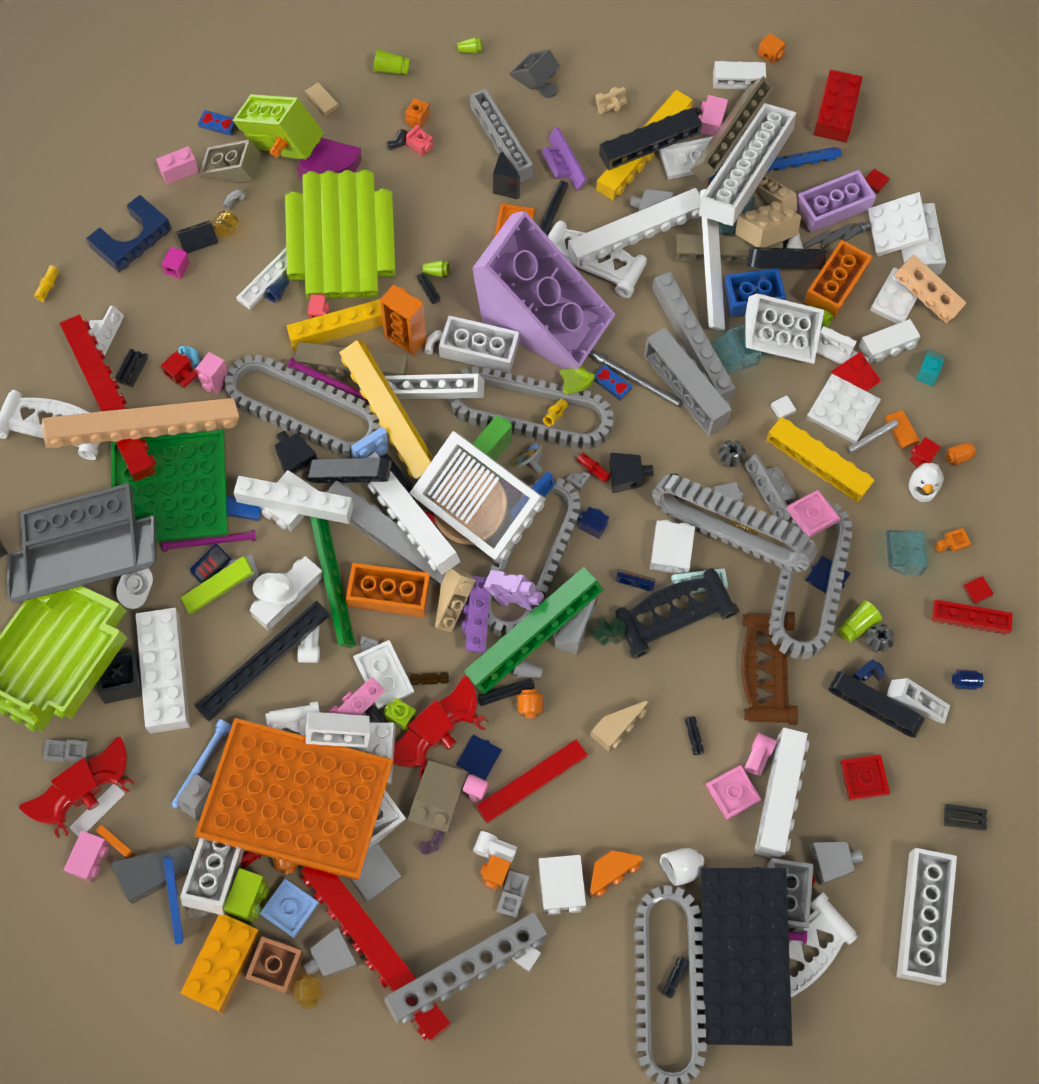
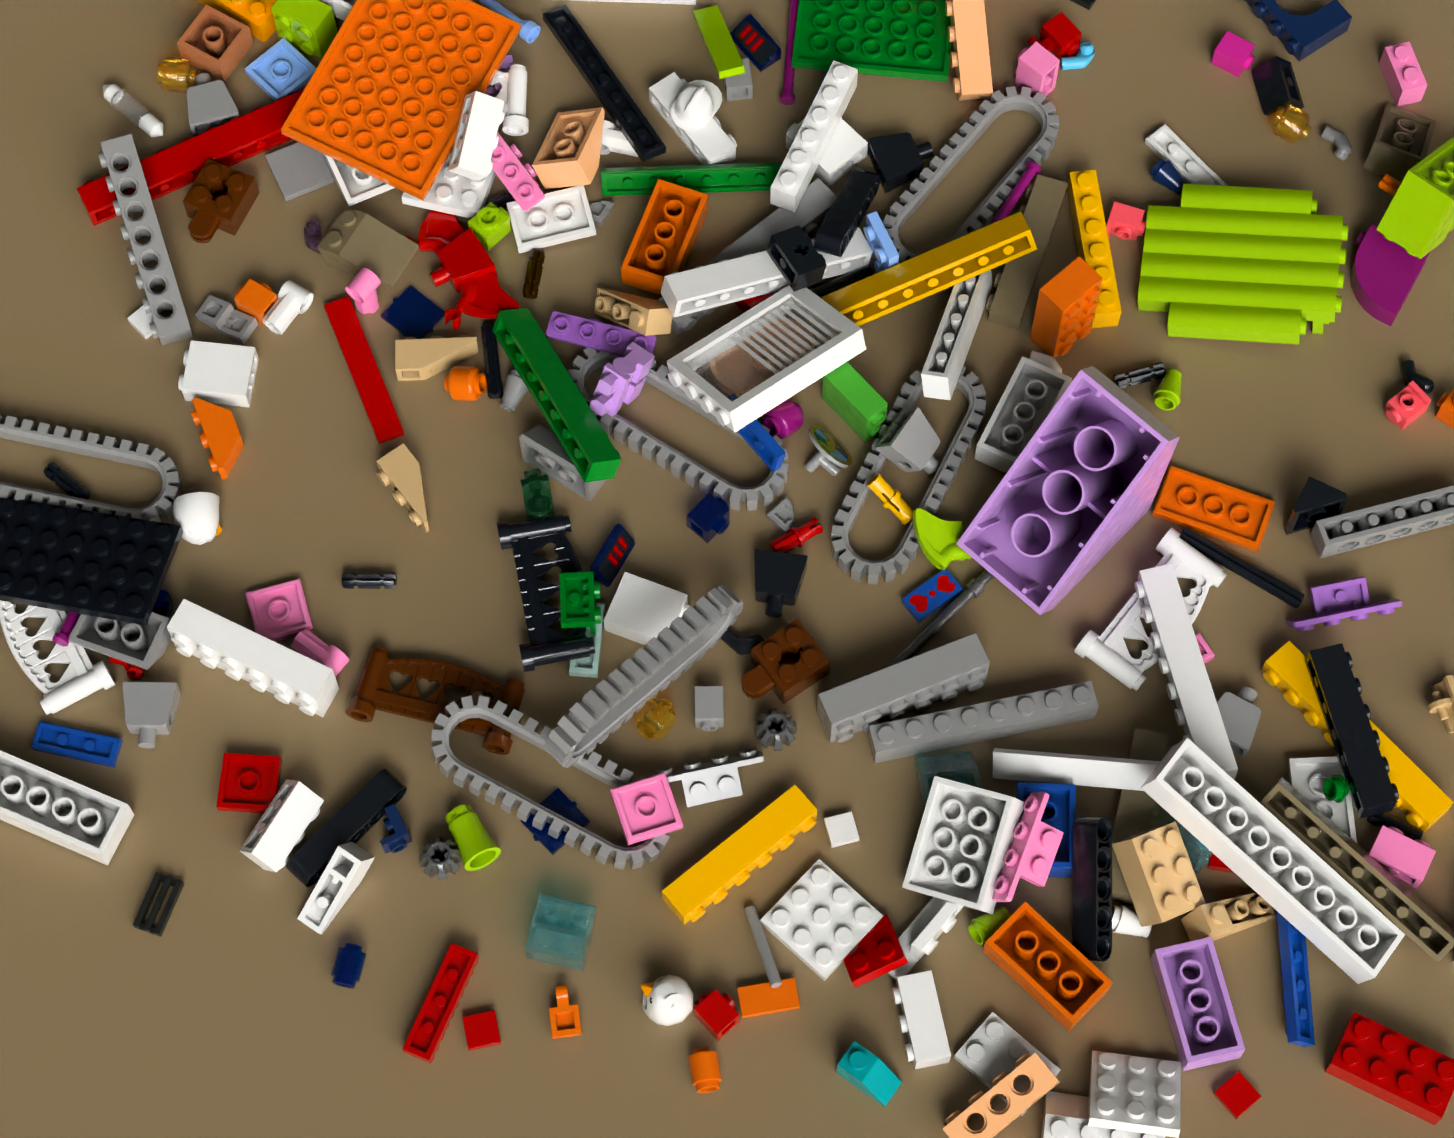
camera: 105 degrees right, 0 degrees up
(325, 668) = (571, 149): none -> light nougat slope
(344, 1021) = (133, 110): none -> piece
(400, 487) = (796, 258): none -> black brick
(416, 923) = (226, 208): none -> reddish brown brick
(513, 405) = (910, 442): none -> light grey torso
(516, 736) = (427, 357): none -> tan slope
(683, 583) = (578, 600): none -> green bracket
(685, 146) = (1335, 788): none -> green plate
(689, 460) = (786, 664): none -> reddish brown brick
(778, 287) = (1031, 850): none -> bright pink bracket
(861, 228) = (1143, 1015): dark grey piece -> none
(871, 909) = (76, 744): none -> blue tile
(891, 744) = (282, 826): none -> white brick

